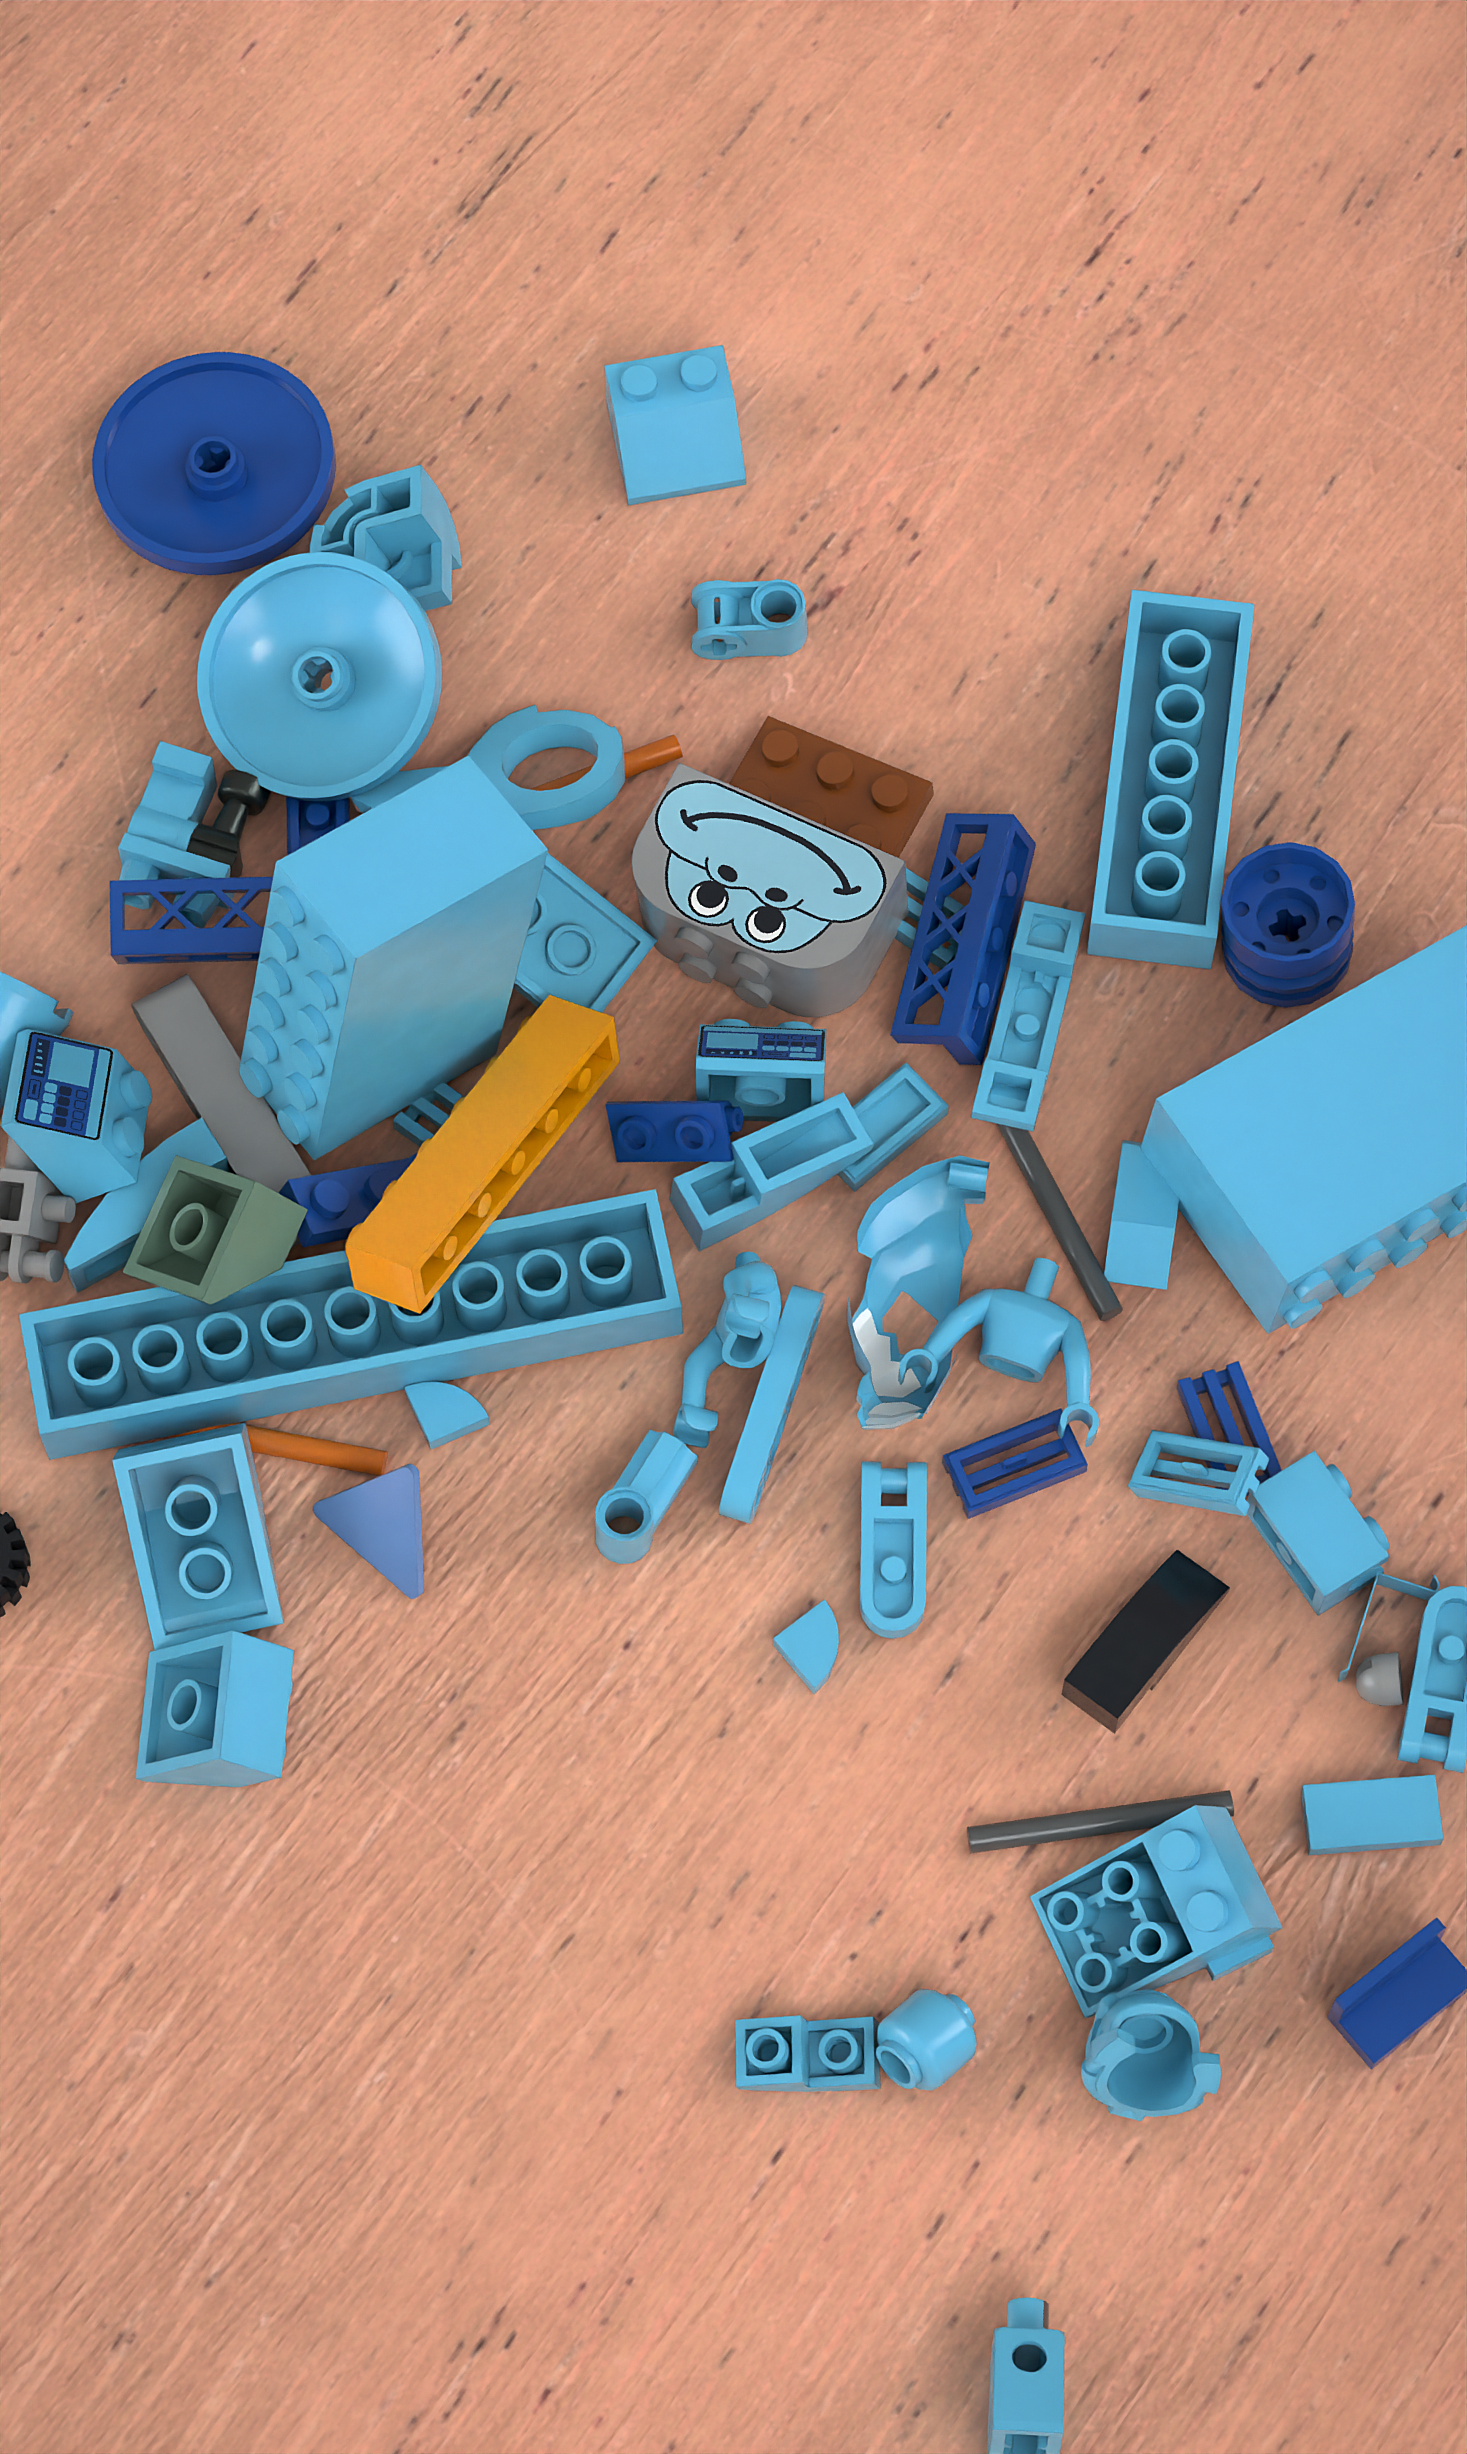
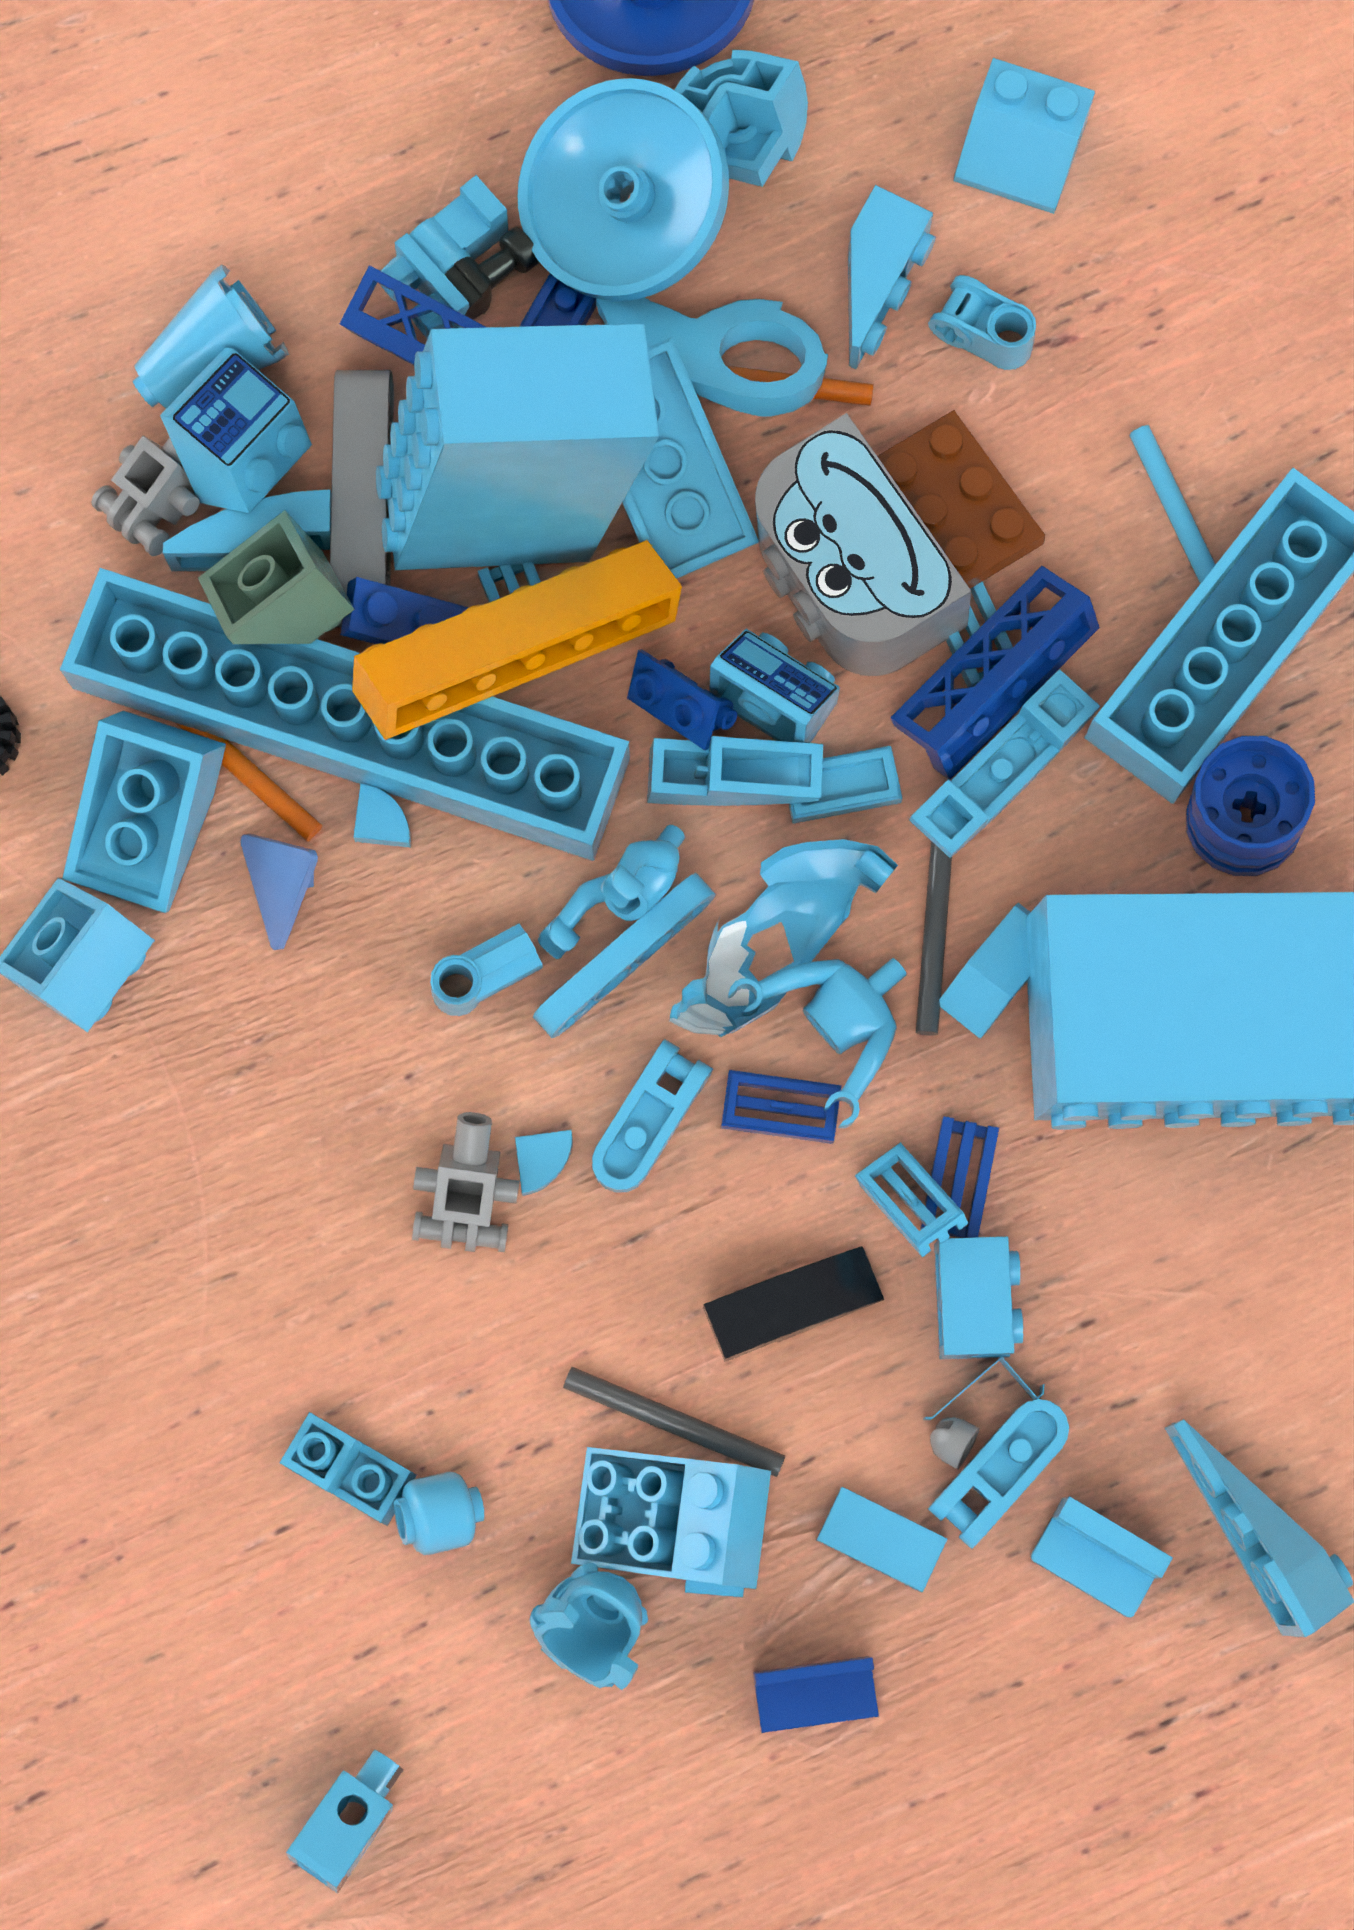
camera: 30 degrees right, 10 degrees up
(605, 619) = (881, 252): none -> medium azure slope
(757, 1711) = (465, 1190): none -> light grey piece
(1033, 691) = (1173, 501): none -> medium azure bar

